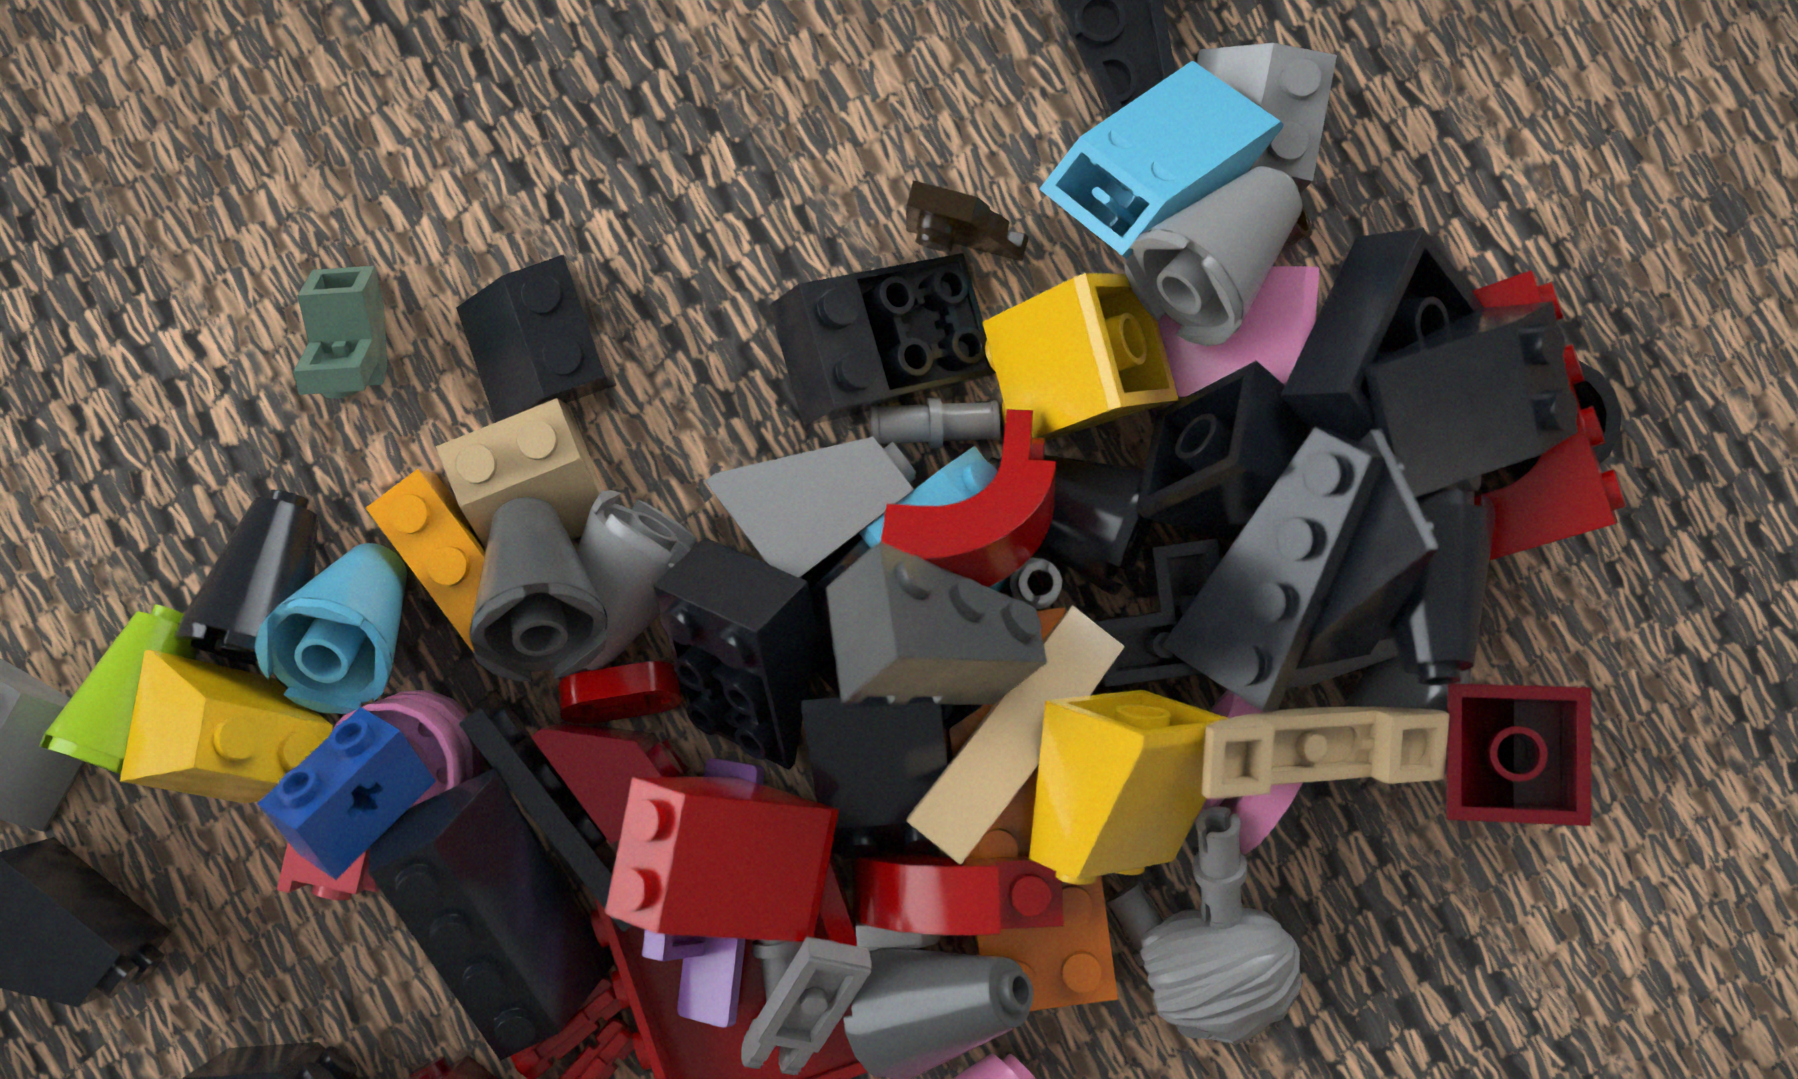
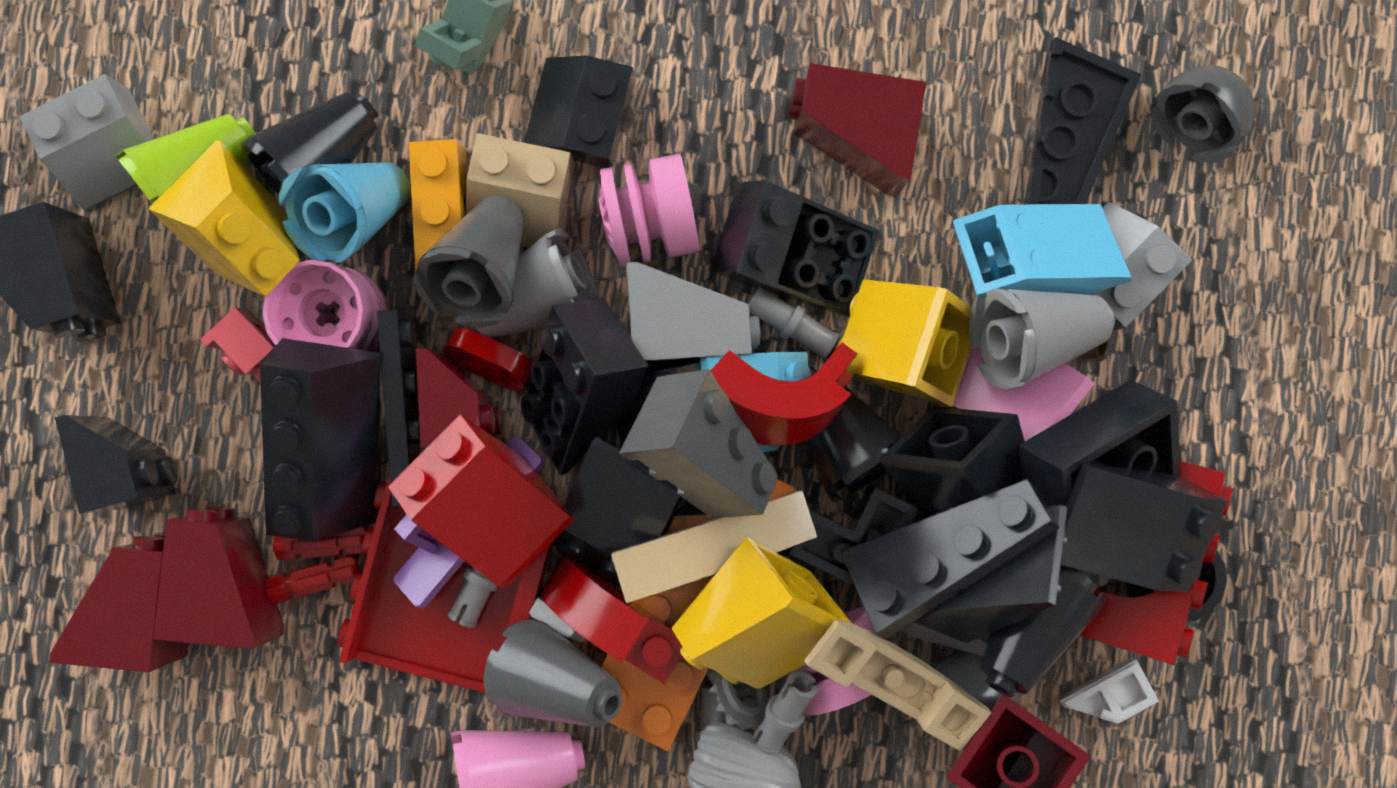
camera: 30 degrees right, 0 degrees up
(347, 792) = (280, 307): blue brick -> none
(690, 404) = (649, 210): none -> bright pink wheel
(806, 1004) = (475, 625): light grey hinge -> none
(859, 143) = (861, 121): none -> dark red slope
(952, 217) = (886, 202): dark brown wing -> none
(1051, 579) = (799, 466): light grey pin -> none
(1174, 897) = (745, 712): none -> light grey gear
(1572, 599) = (1113, 694): none -> white tile

